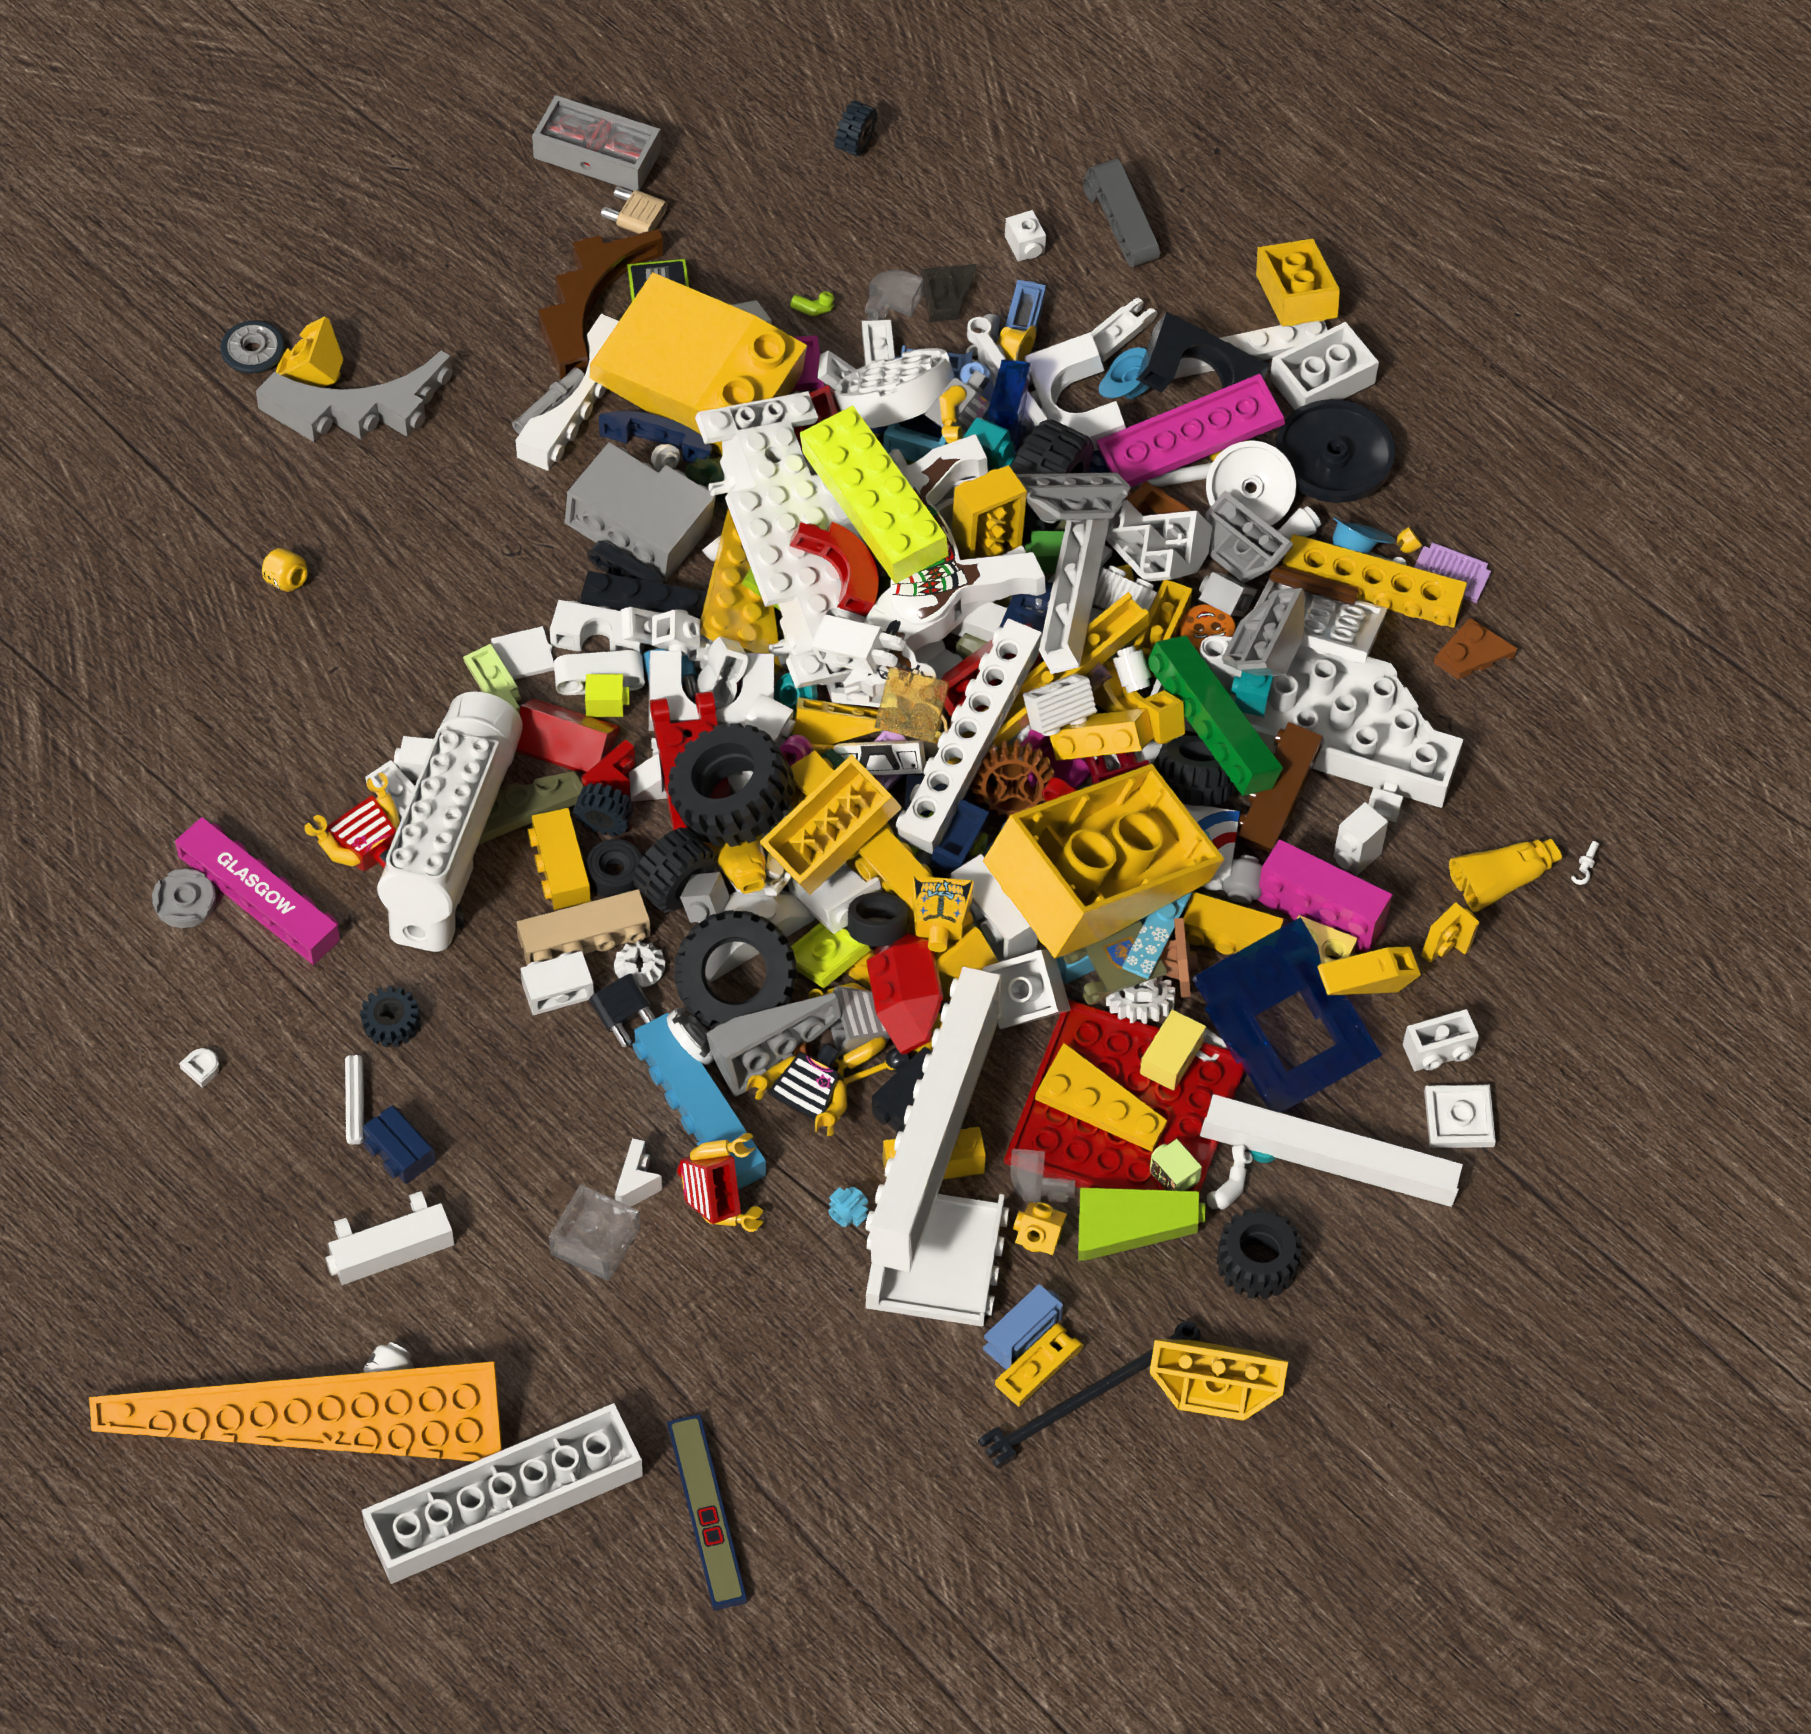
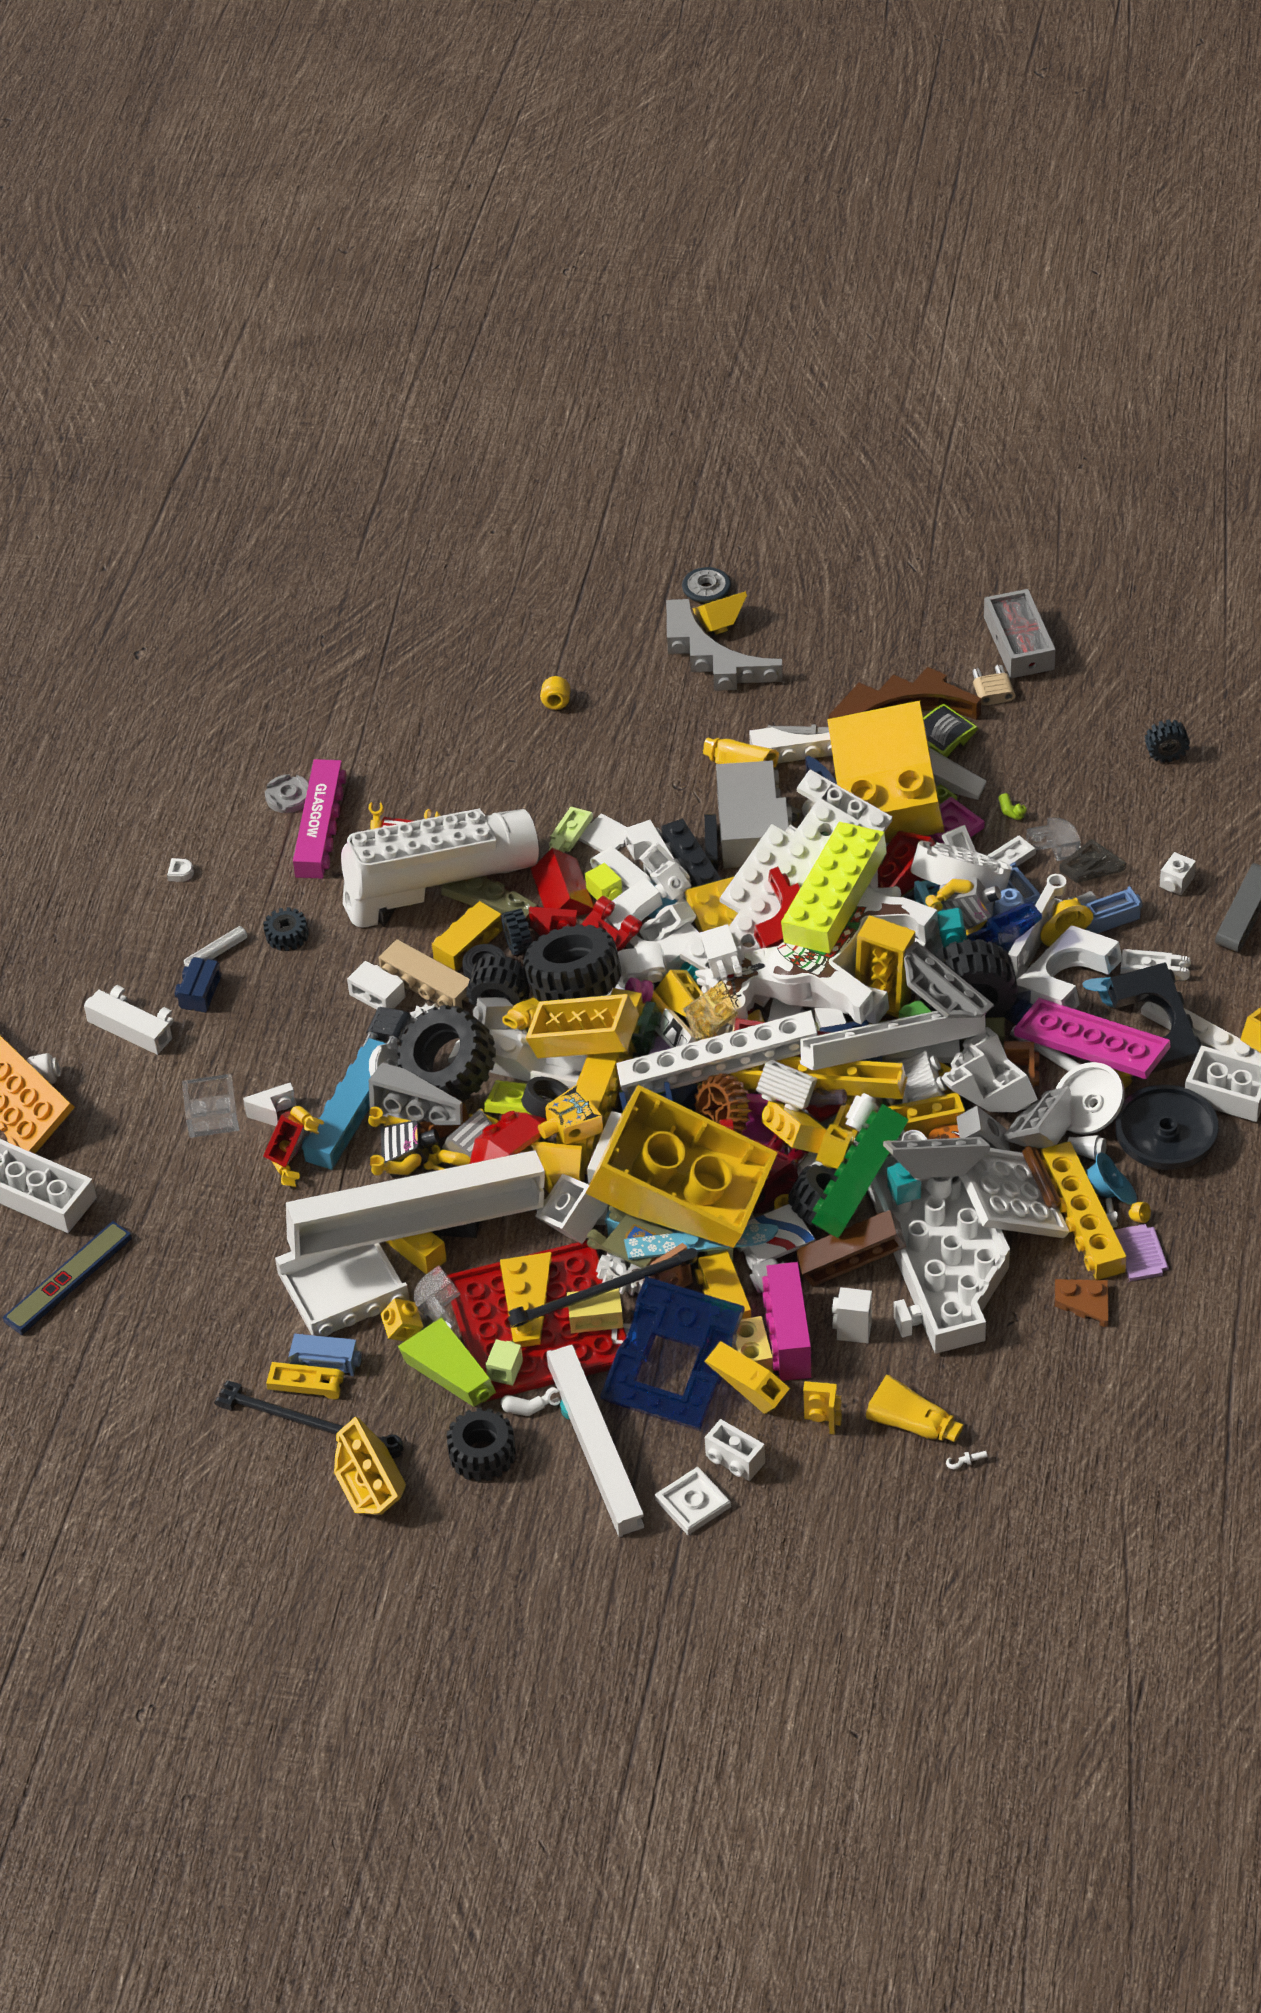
camera: 60 degrees right, 10 degrees down
(541, 473) = (732, 751): none -> yellow piece
(1143, 1116) = (519, 1316): none -> black hinge

